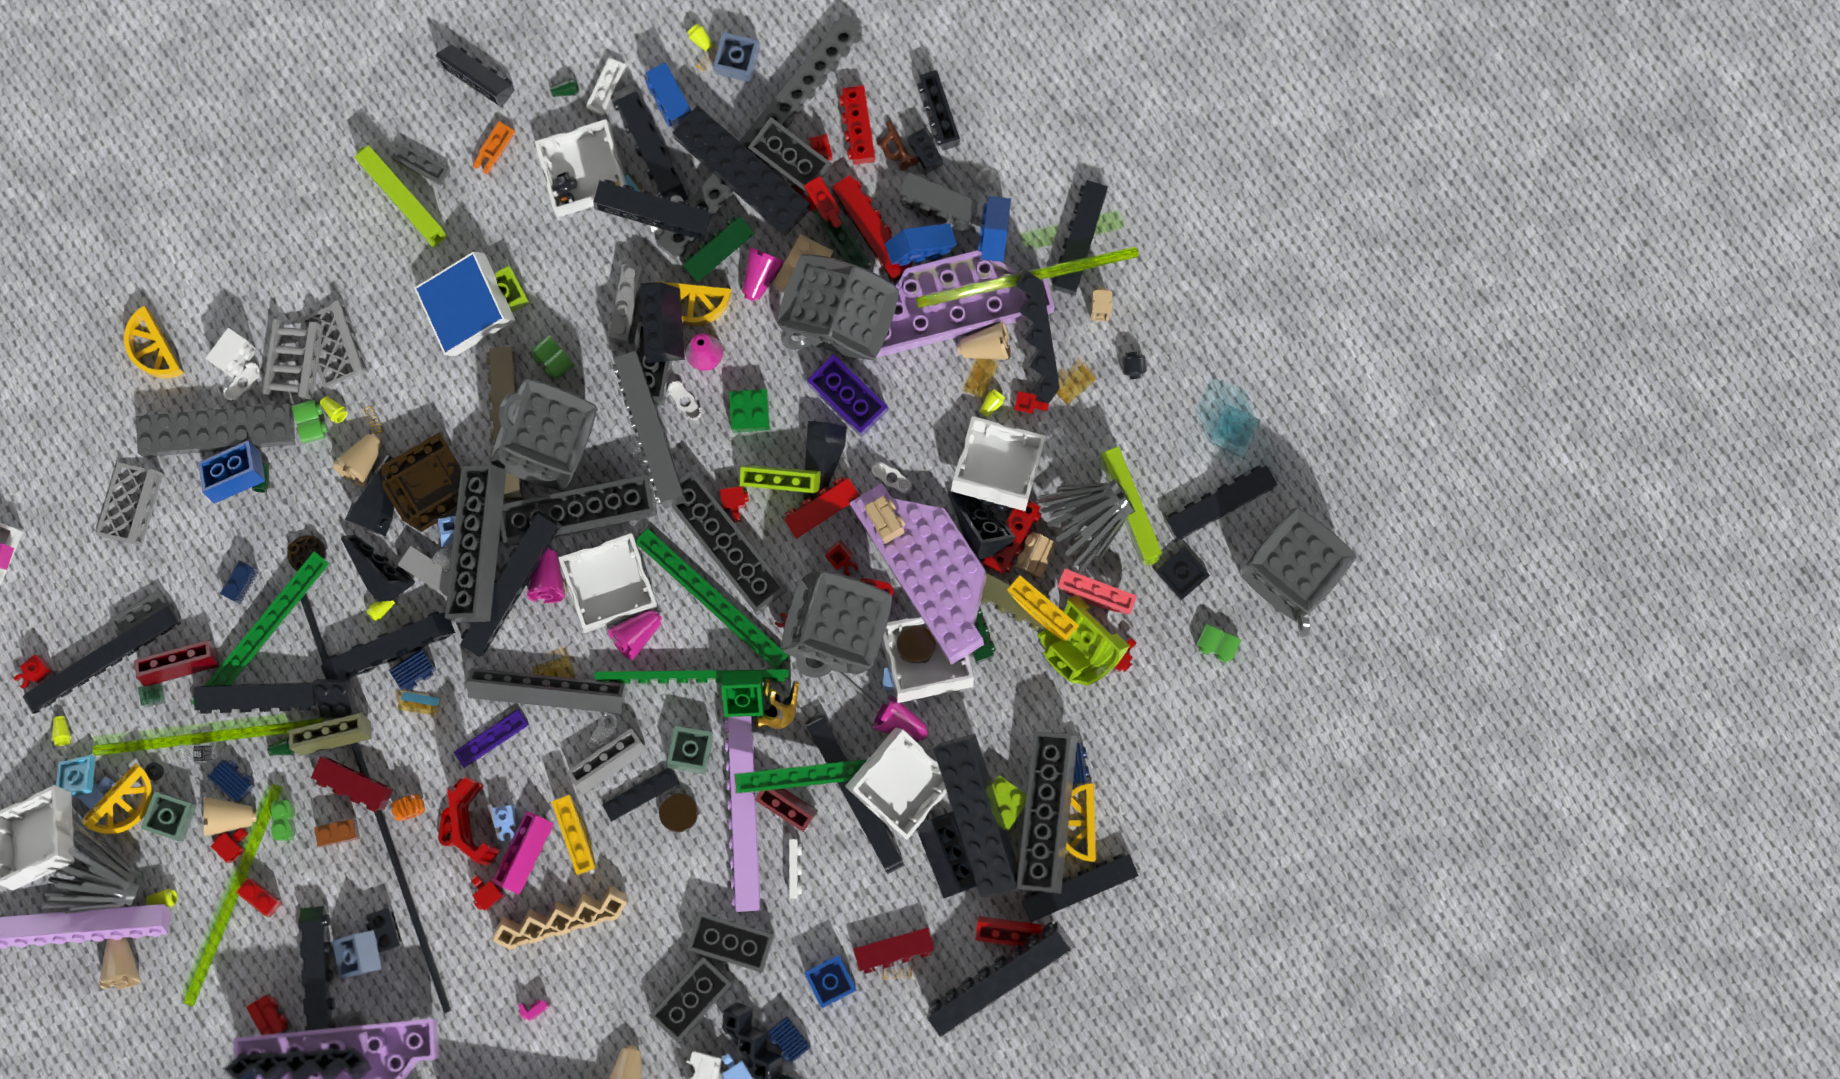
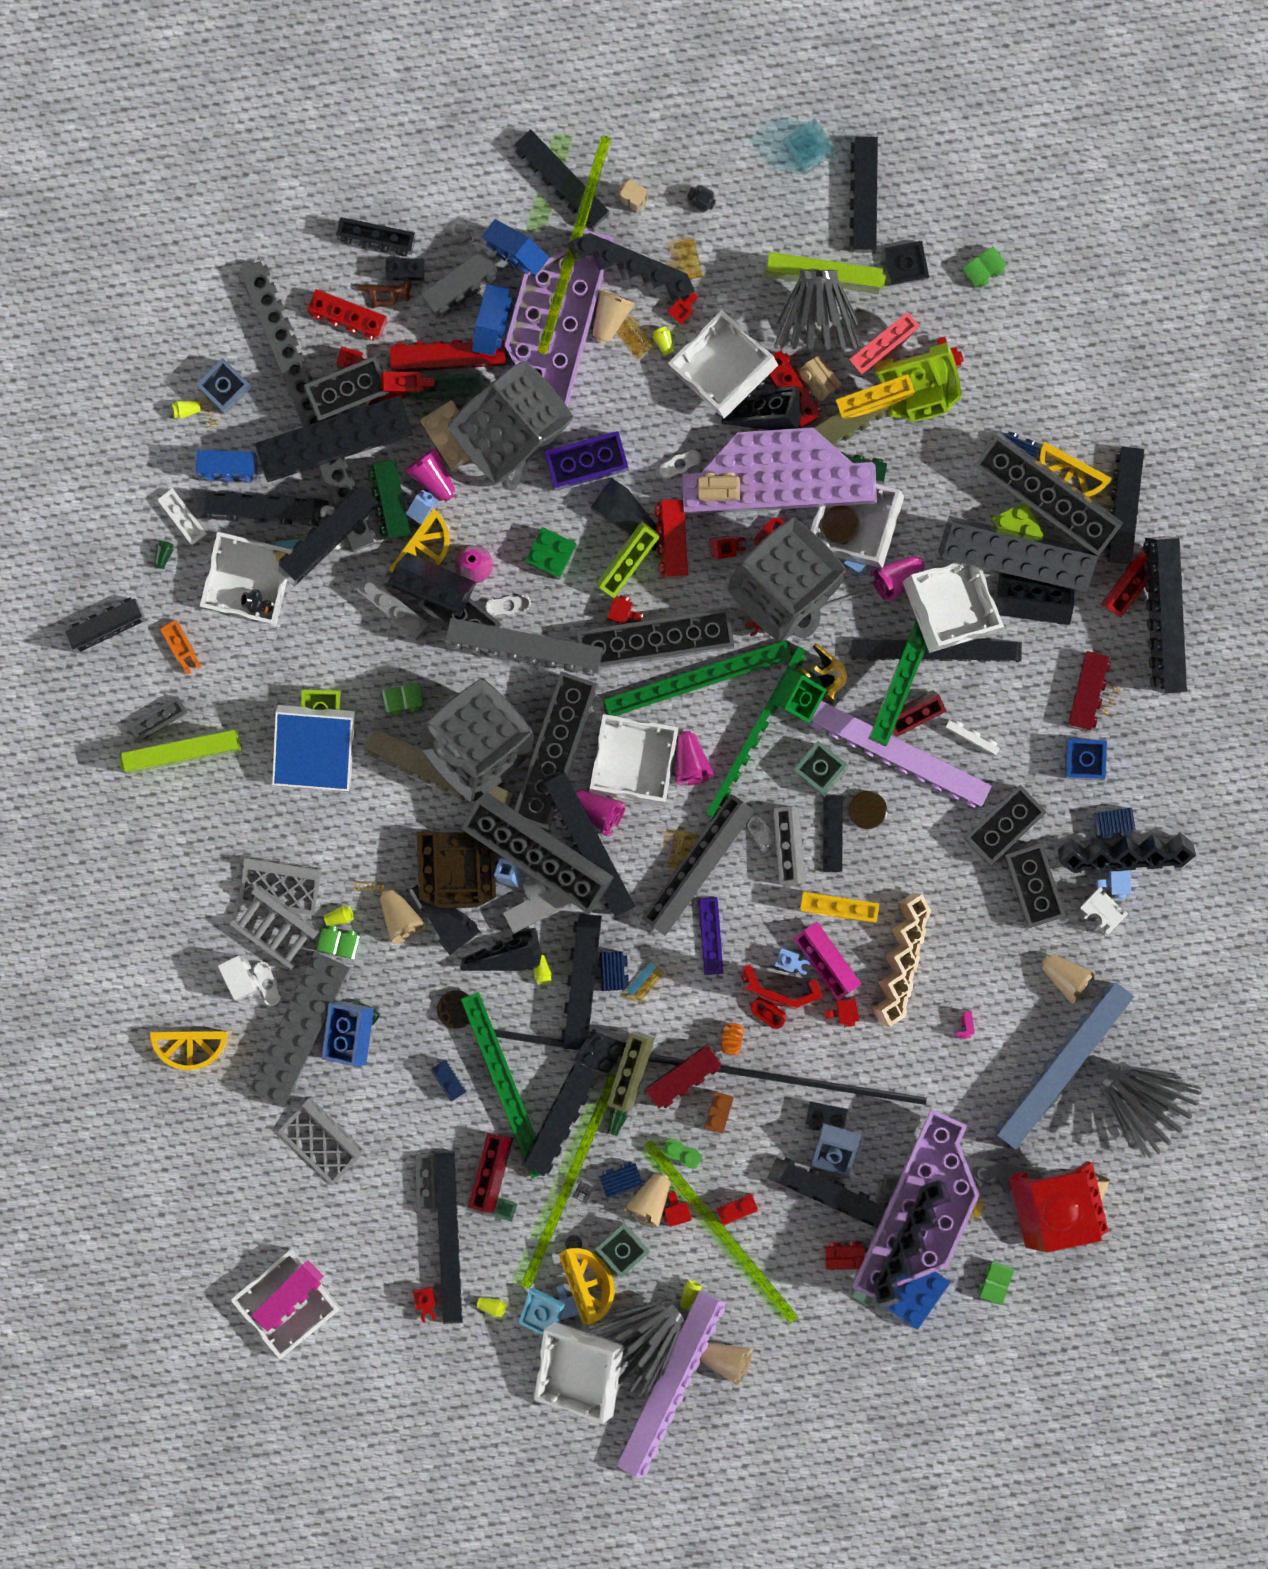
camera: 60 degrees left, 5 degrees up
(727, 278) = (422, 506): none -> light blue brick
(1298, 566) = (961, 160): dark grey piece -> none

